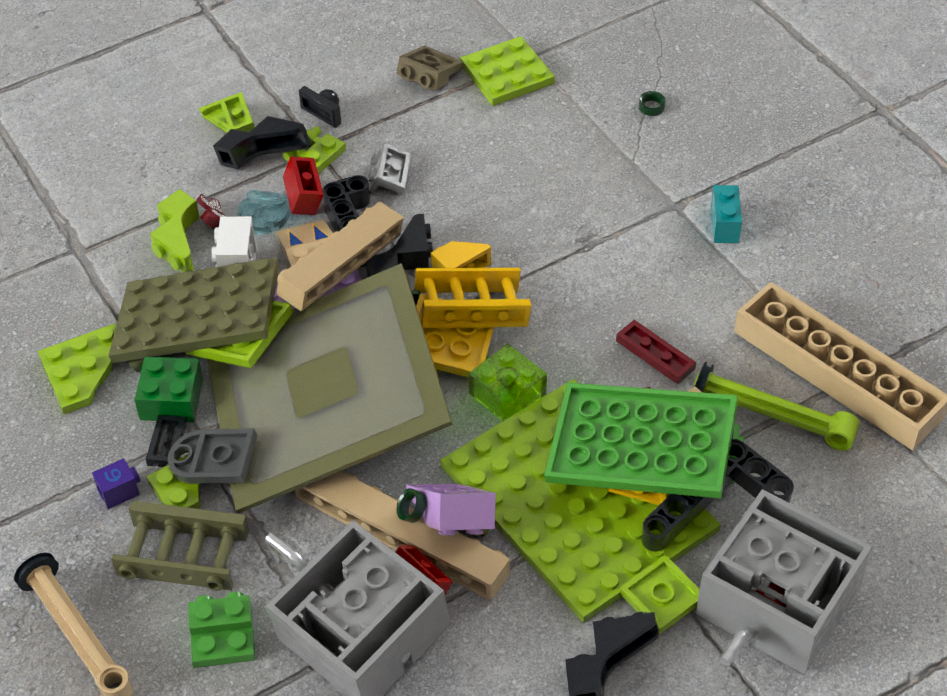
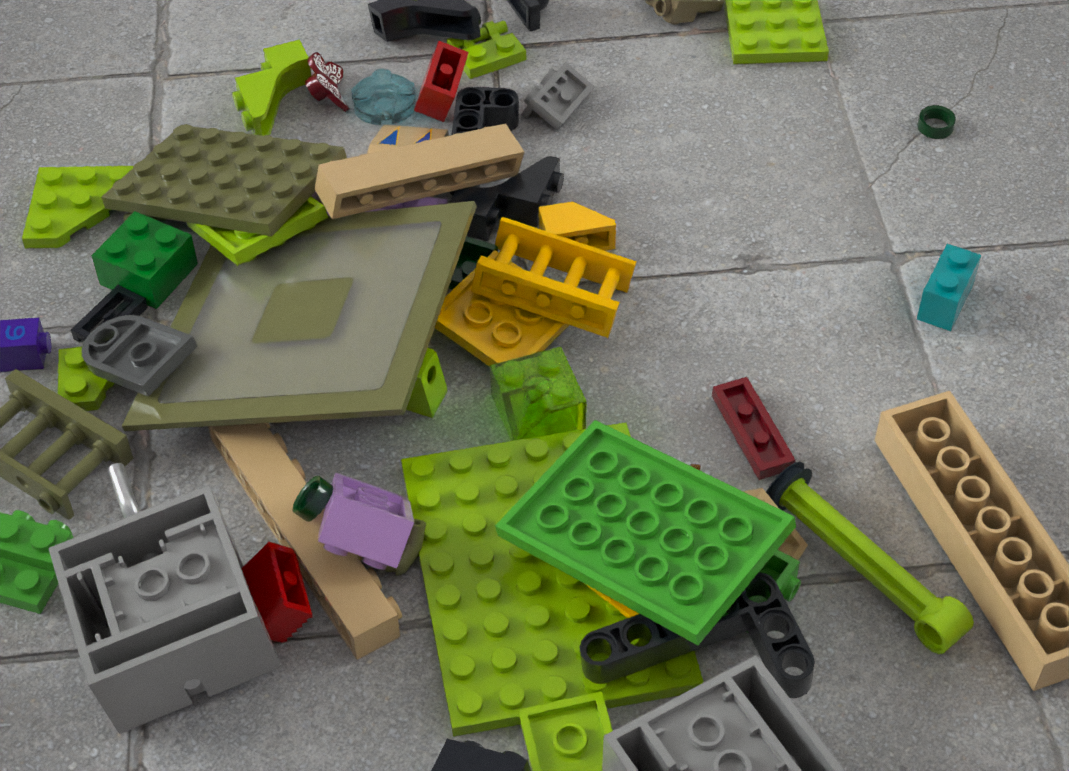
camera: 25 degrees right, 0 degrees up
(234, 241) = (316, 116): white brick -> none

